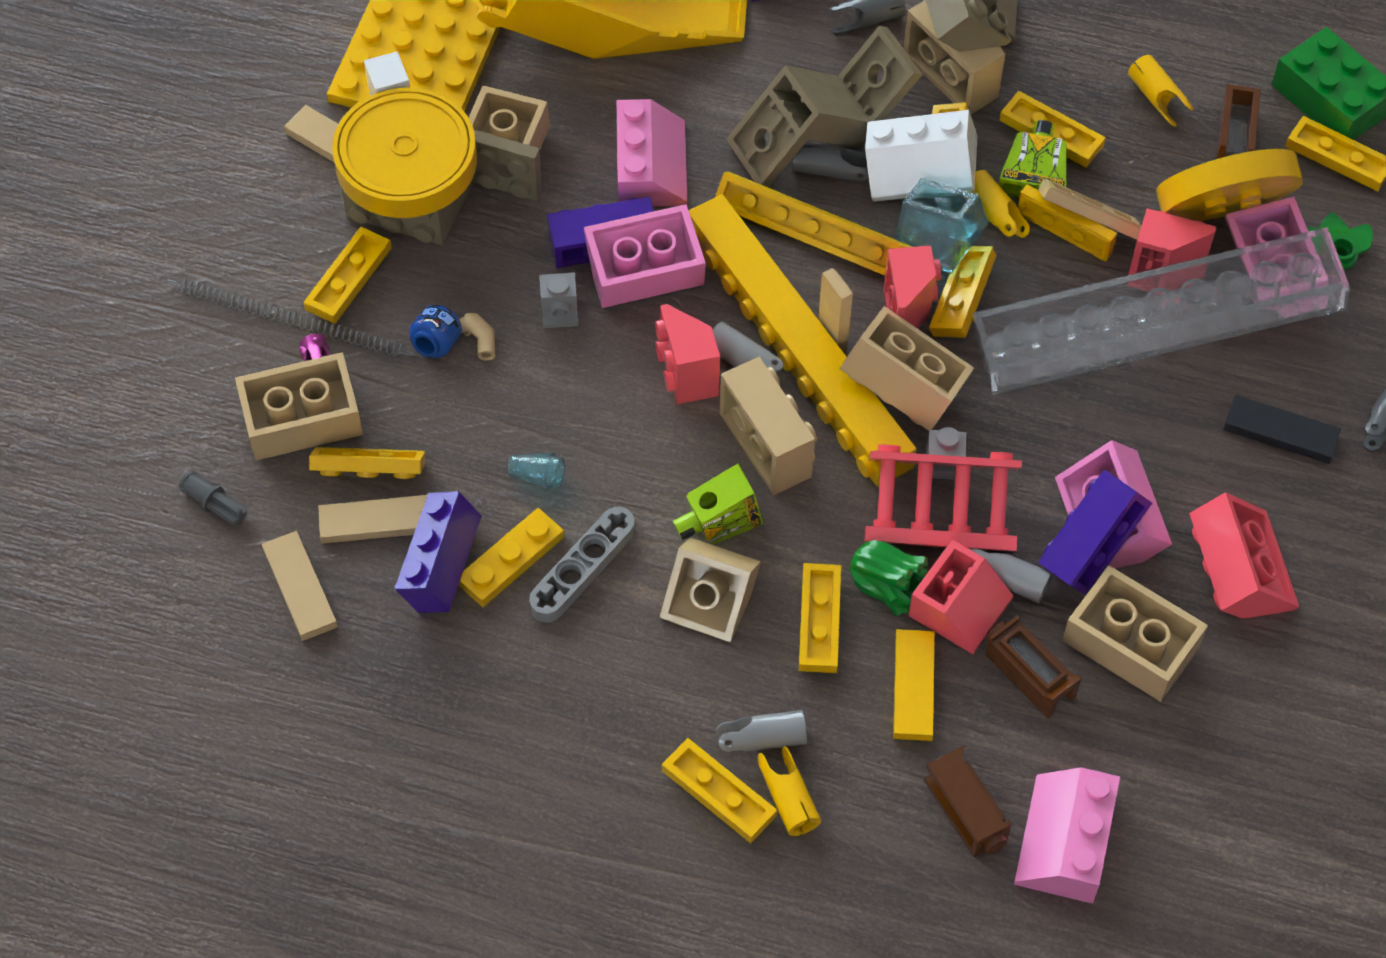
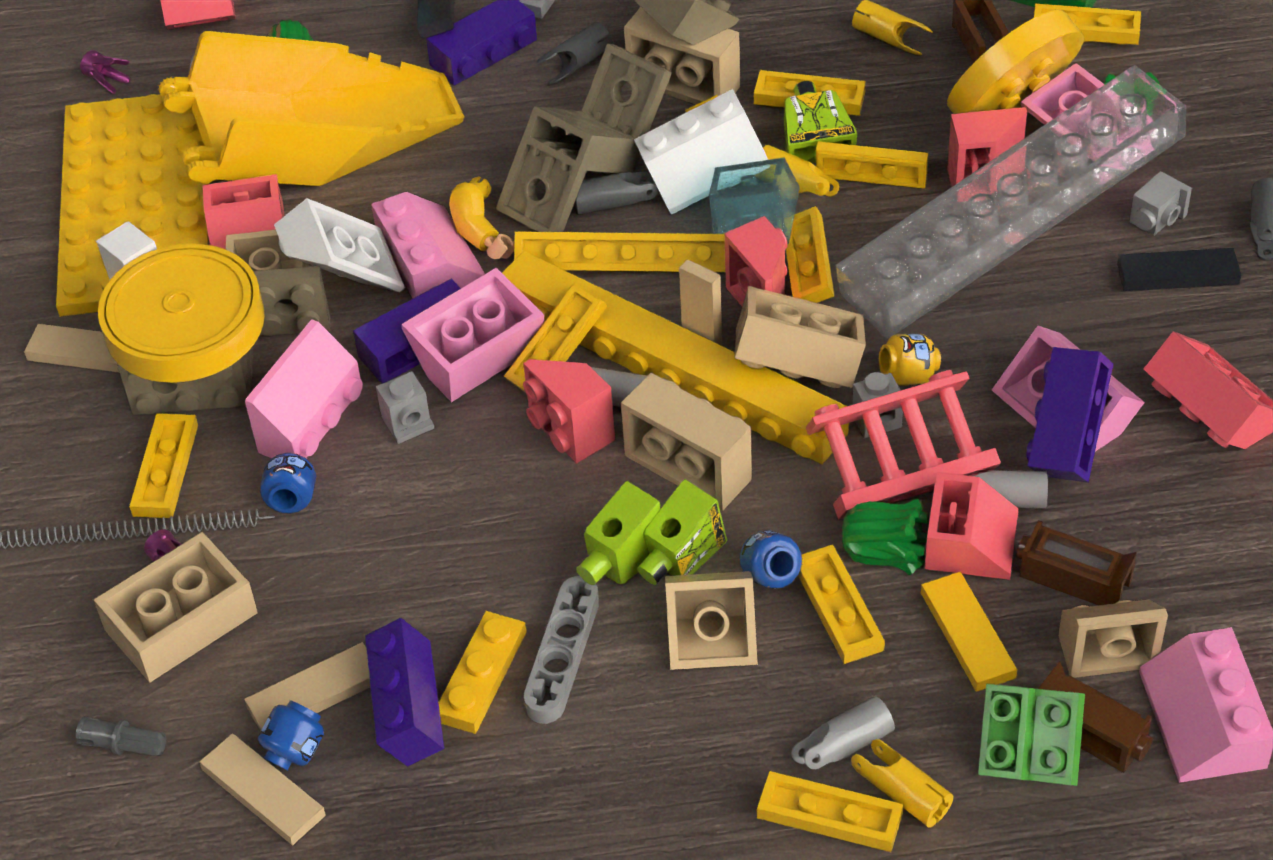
camera: 20 degrees left, 10 degrees down
(337, 552) = (291, 735): none -> blue head
(367, 462) = (278, 636): yellow plate -> none
(480, 258) = (303, 394): none -> bright pink slope
(485, 334) = (339, 468): tan arm -> none
(511, 65) = (241, 207): none -> coral slope
(540, 469) = (466, 574): clear light blue cone -> none
(567, 134) = (338, 244): none -> white slope
(665, 489) = (616, 536): none -> lime torso
(697, 141) = (470, 221): none -> yellow arm
(713, 284) = (560, 331): none -> yellow tile
(783, 557) = (771, 559): none -> blue head
(909, 796) = (1031, 734): none -> bright green slope
(996, 422) = (909, 358): none -> yellow head
(1022, 739) = (1111, 636): none -> tan slope
(1090, 208) = (890, 141): tan tile -> none
(1134, 633) = (1160, 494): tan brick -> none
(1299, 360) = (1160, 203): none -> light grey brick

